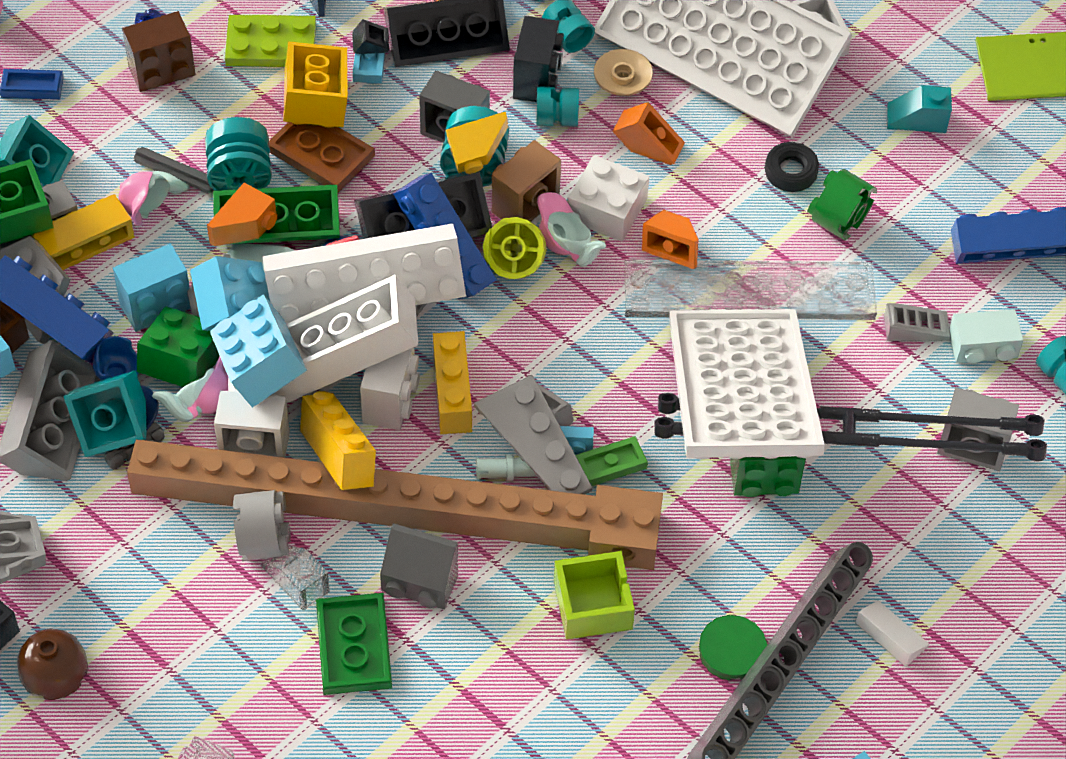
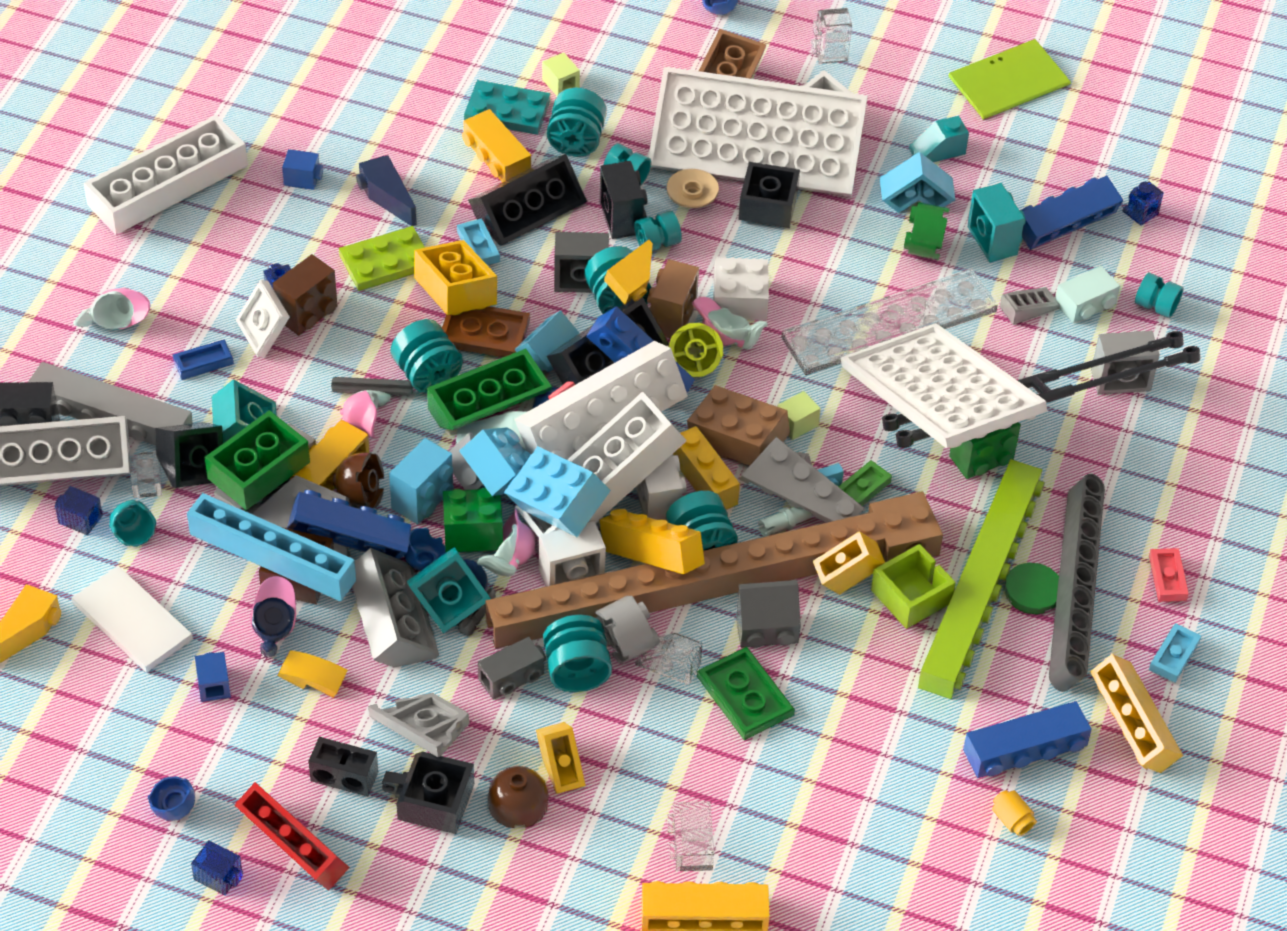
camera: 25 degrees left, 5 degrees down
(92, 263) = (359, 479): none -> reddish brown cylinder
(103, 61) = (262, 318): none -> white tile
(118, 637) = (561, 757): none -> yellow slope
(128, 521) = (511, 668): none -> dark grey brick
(195, 532) = (577, 653): none -> teal wheel
(242, 217) = (471, 397): orange slope -> none
(370, 38) = (473, 227): black slope -> none
(370, 181) = (548, 337): none -> medium azure brick
(406, 438) = (704, 513): none -> teal wheel
(512, 344) = (739, 424): none -> medium nougat brick
(536, 542) = (848, 563): none -> yellow brick
(586, 358) = (802, 414): none -> yellowish green brick
(648, 134) = (741, 229): orange slope -> none
(671, 238) = (813, 302): orange slope -> none
(676, 616) = (981, 579): none -> lime brick
(698, 105) = (769, 194): none -> black brick
(788, 181) = (867, 206): black tyre -> none
(864, 145) = (917, 181): none -> medium azure brick
(891, 632) = (1141, 534): white slope -> none
(892, 691) = (1168, 575): none -> coral plate
(925, 220) = (996, 222): none -> teal brick

